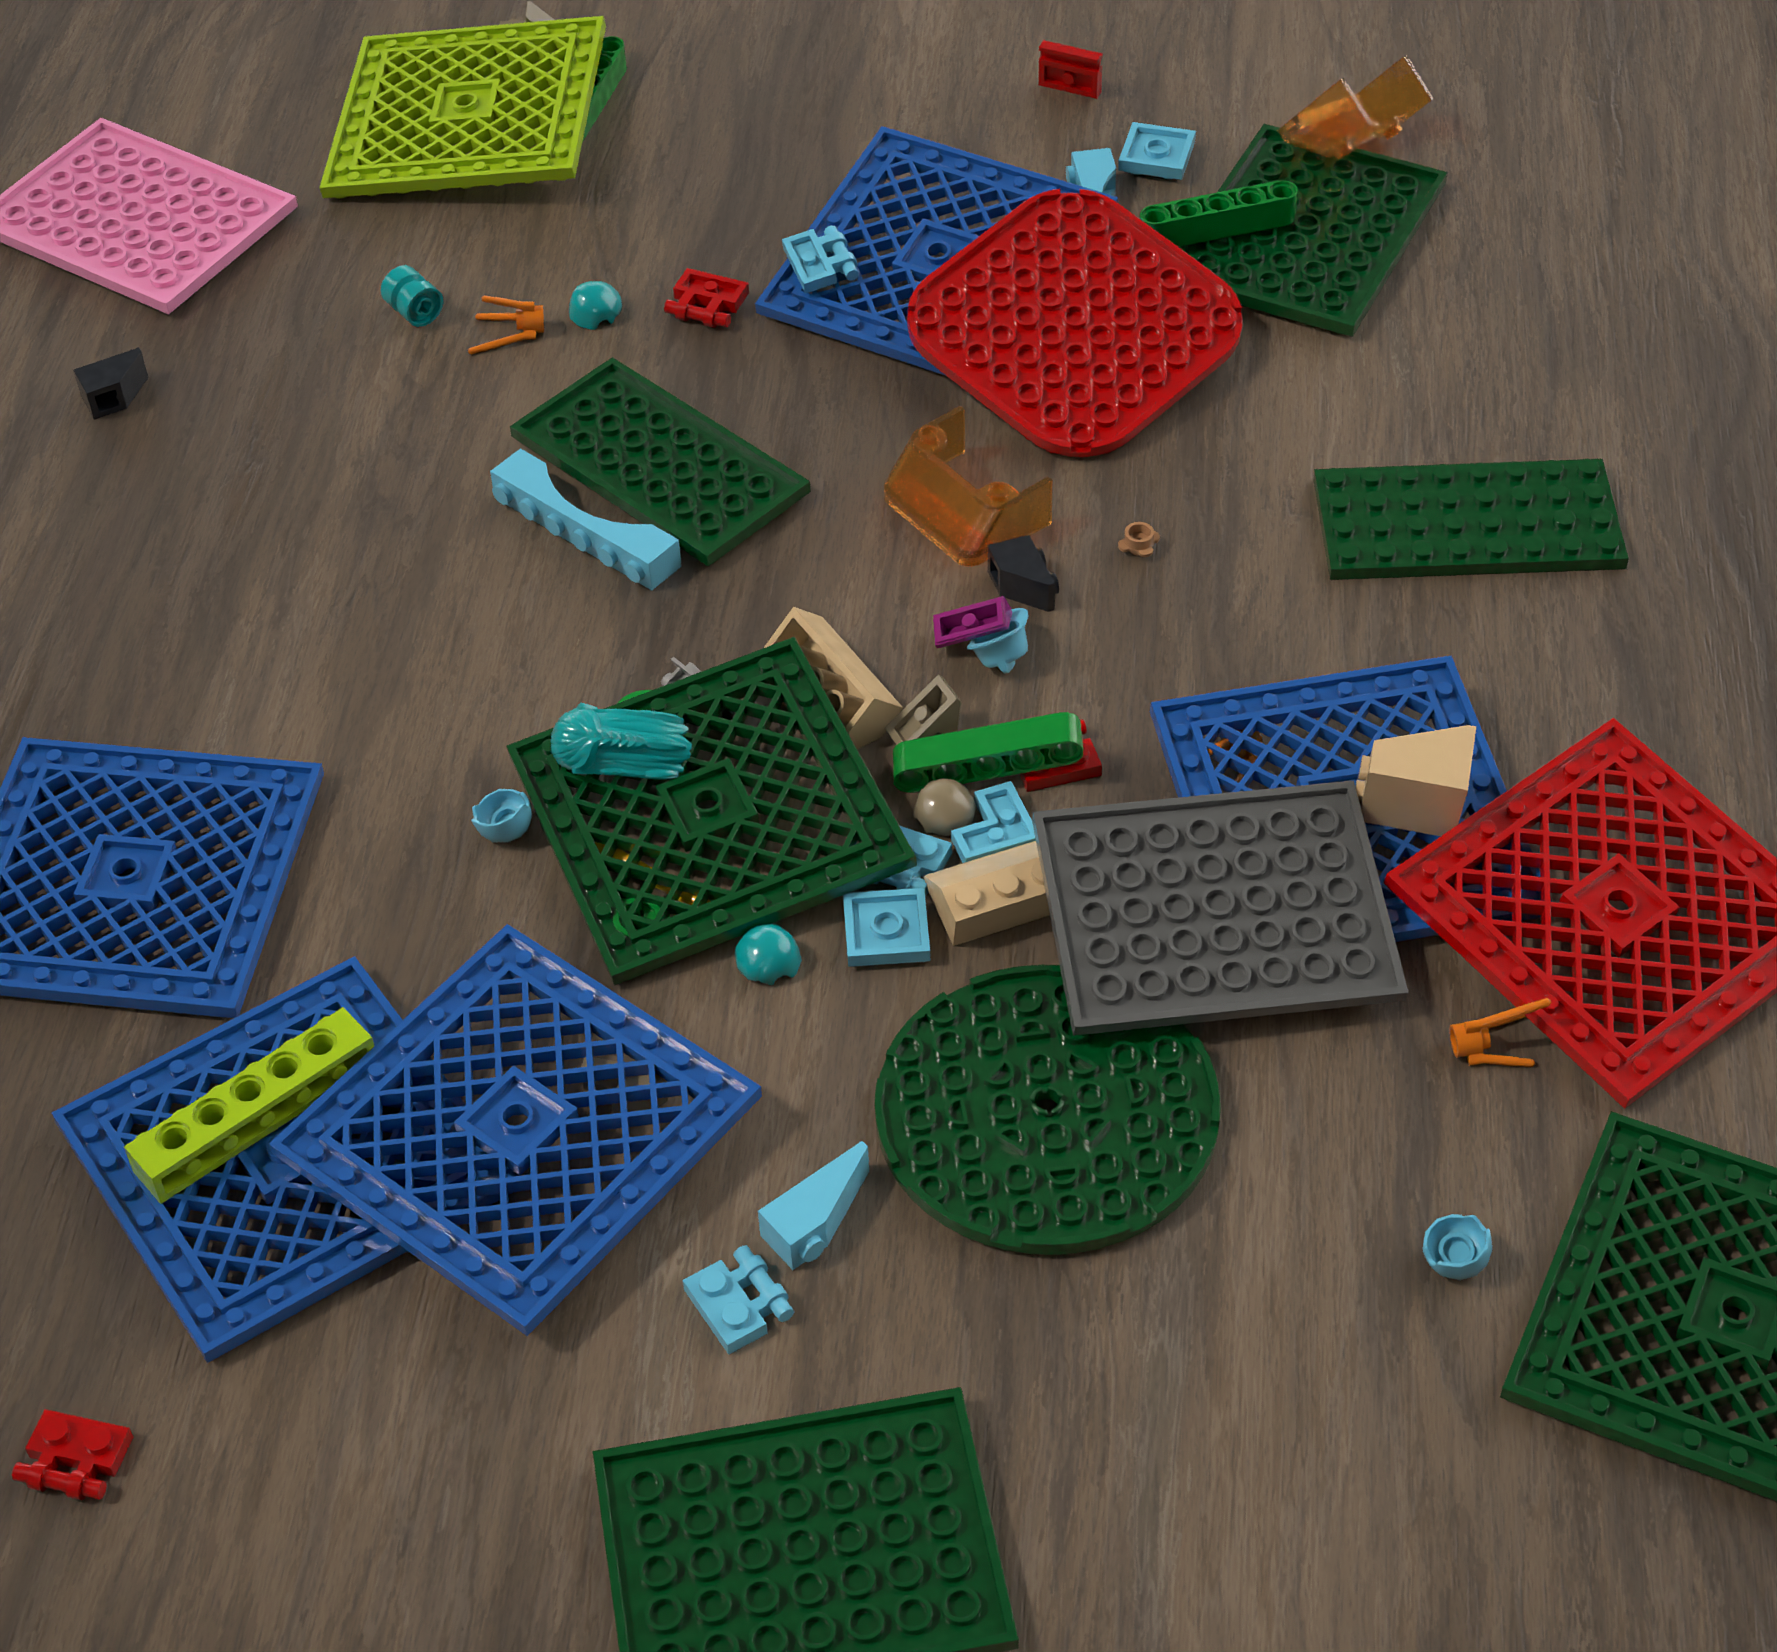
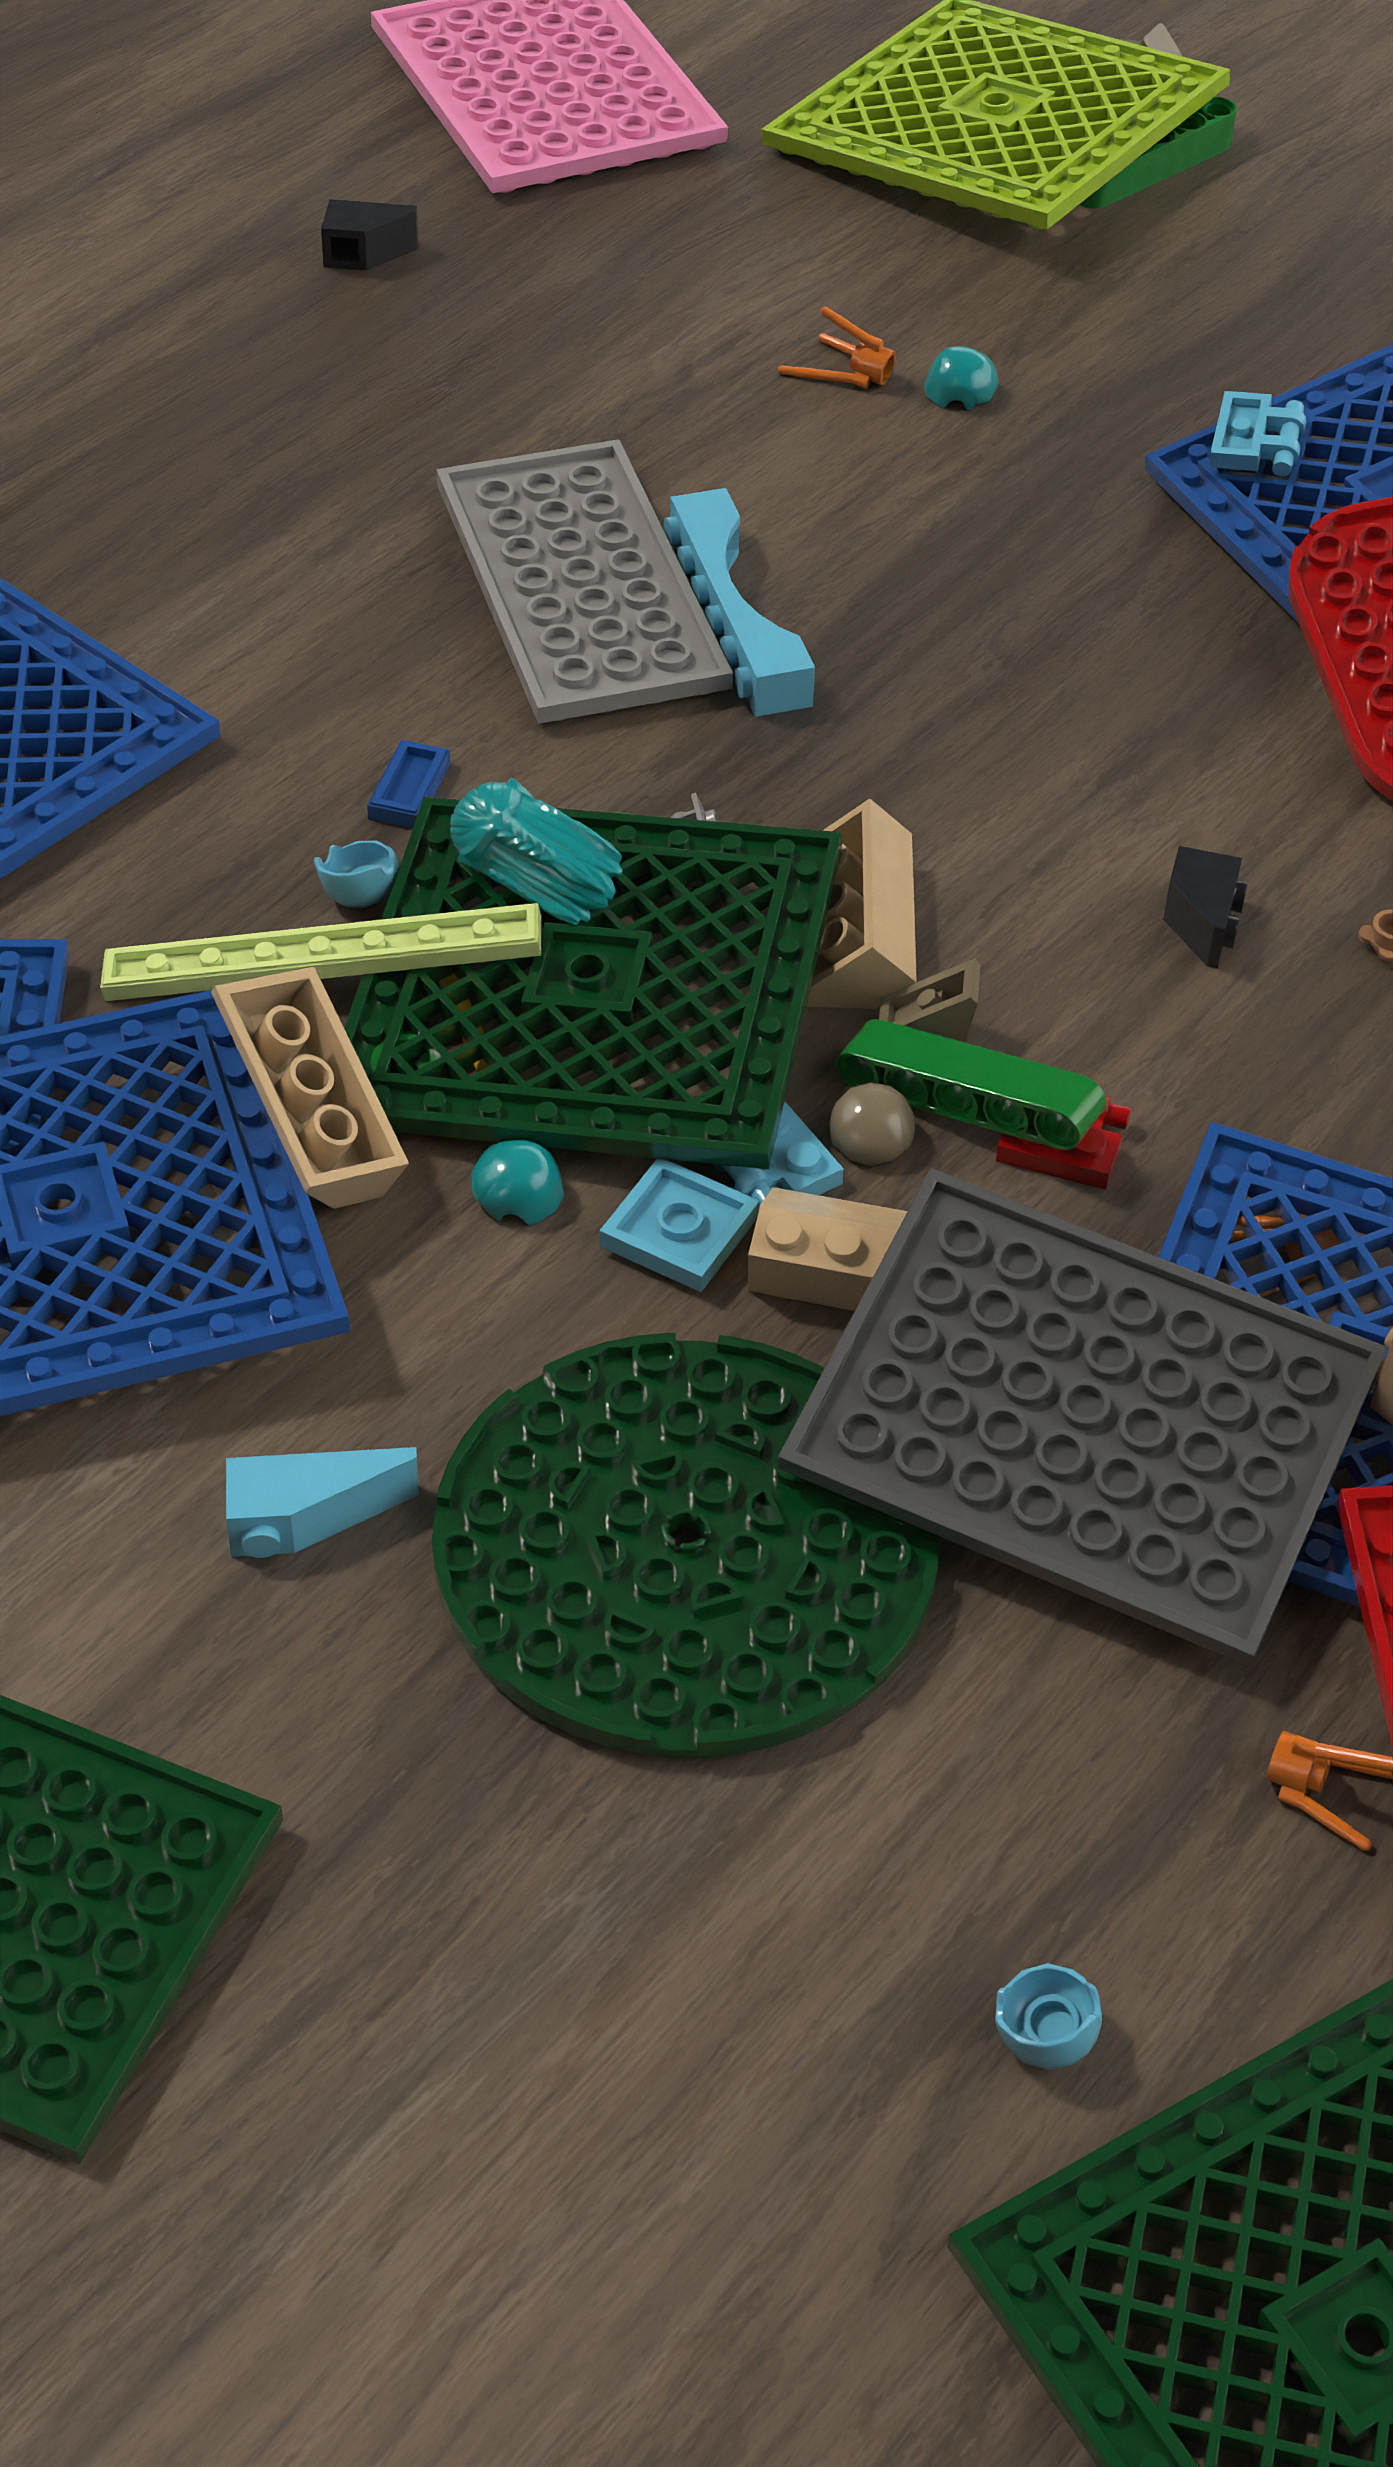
camera: 30 degrees right, 0 degrees up
(412, 295) = (759, 280): teal wheel -> none
(469, 554) = (582, 581): none -> light grey plate
(476, 743) = (410, 775): none -> blue tile
(527, 879) = (331, 949): none -> yellowish green tile
(619, 956) = (312, 1086): none -> tan slope
(660, 460) = (886, 580): dark green plate -> none
(708, 290) = (1107, 425): red plate -> none
(728, 1309) = (116, 1551): medium azure plate -> none
(952, 509) = (1182, 800): clear orange windscreen -> none
(971, 621) = (1087, 925): magenta slope -> none
(1004, 824) = (896, 1183): medium azure plate -> none
(1005, 646) = (1105, 968): medium azure piece -> none

